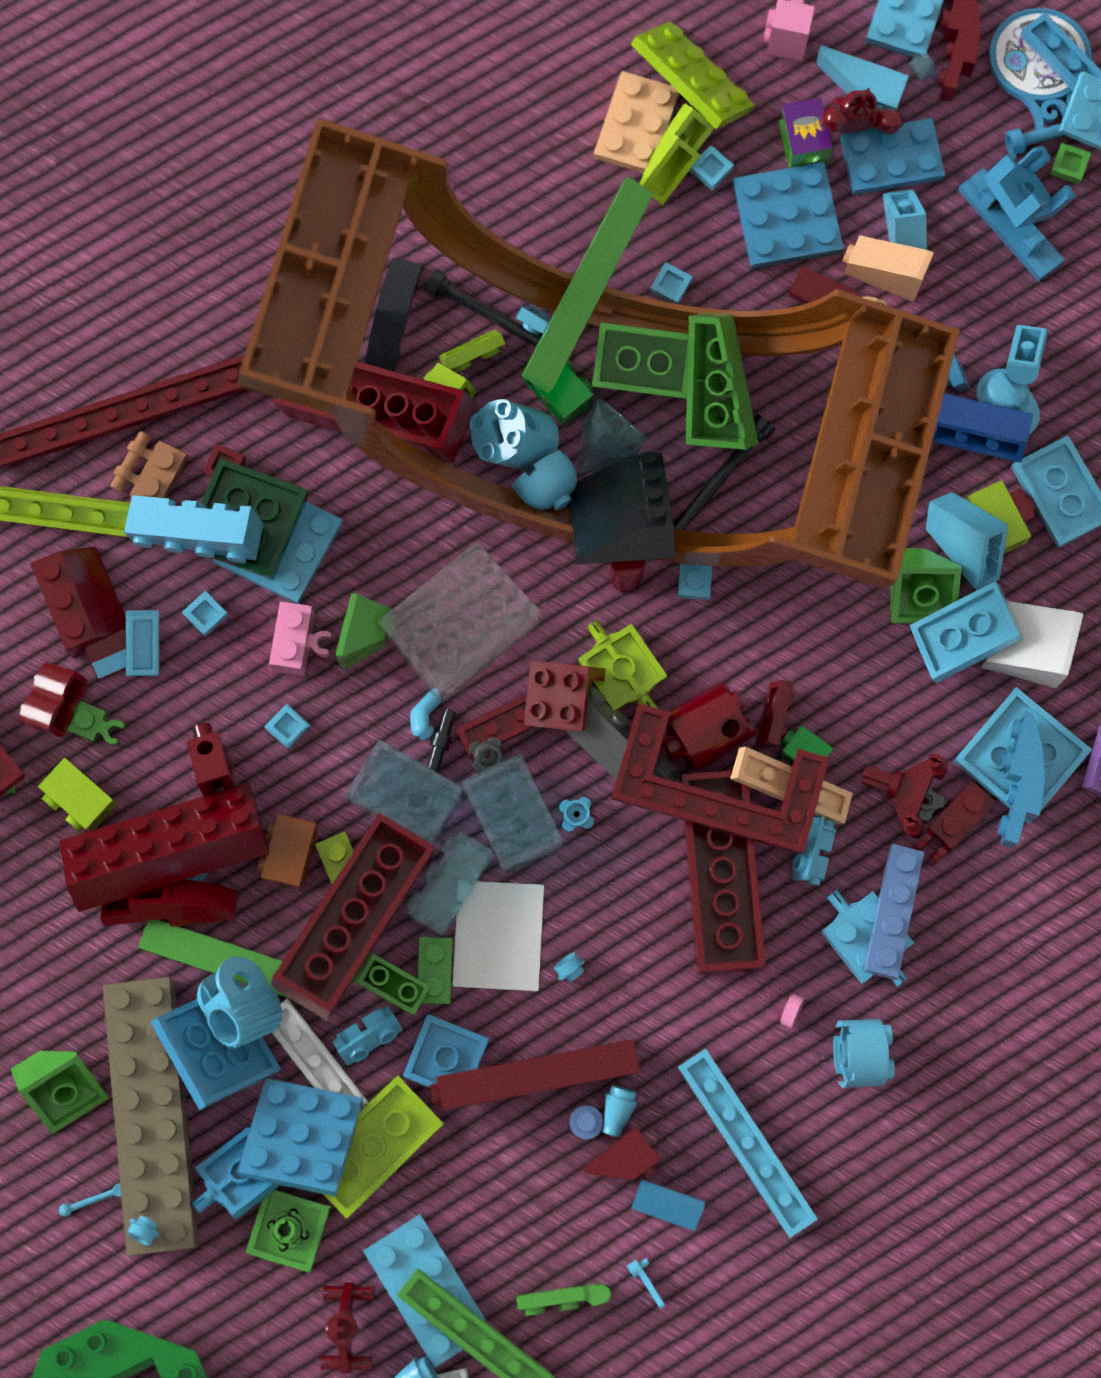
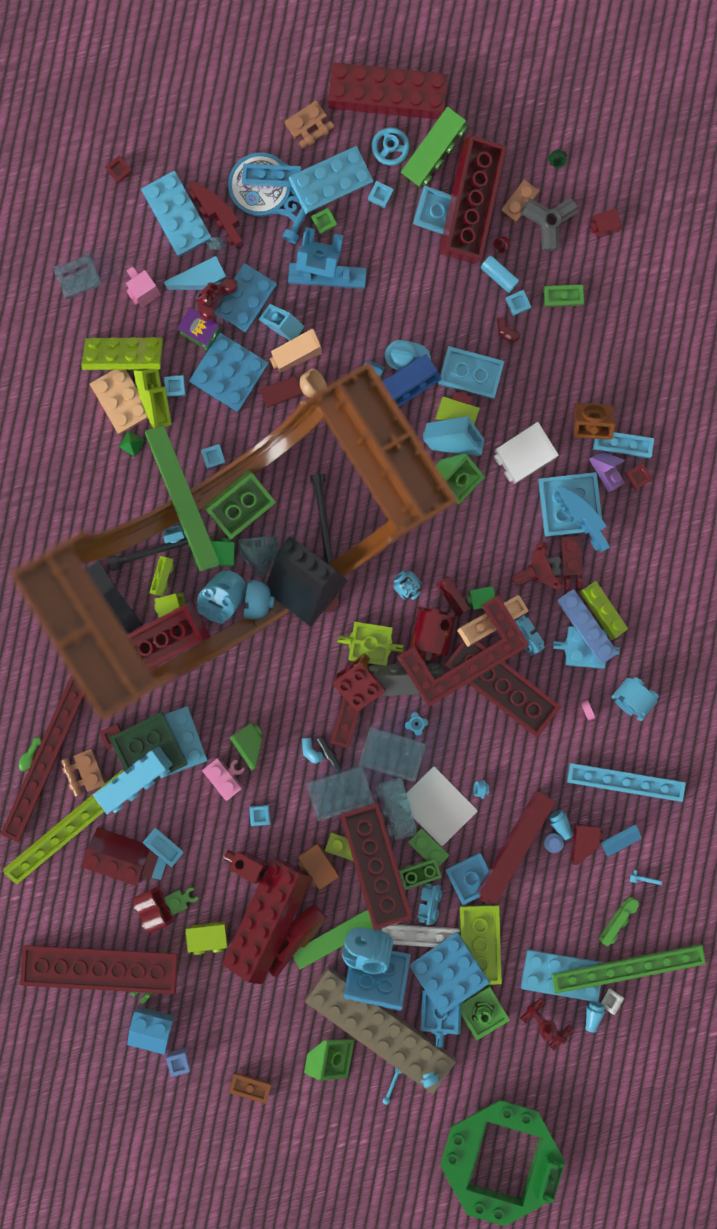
camera: 45 degrees left, 10 degrees up
(107, 390) = (27, 758): none -> bright green piece
(205, 613) = (174, 806): medium azure plate -> none
(460, 622) = (284, 698): clear slope -> none
(478, 750) = (360, 740): dark grey plate -> none
(596, 181) = (131, 443): none -> green slope
(694, 582) = (361, 575): medium azure plate -> none
(717, 387) = (283, 484): bright green wedge -> none
(735, 647) = (407, 585): none -> medium azure head
(933, 916) = (603, 610): none -> lime plate
(966, 632) = (495, 478): medium azure plate -> none
(1026, 354) = (395, 329): medium azure brick -> none

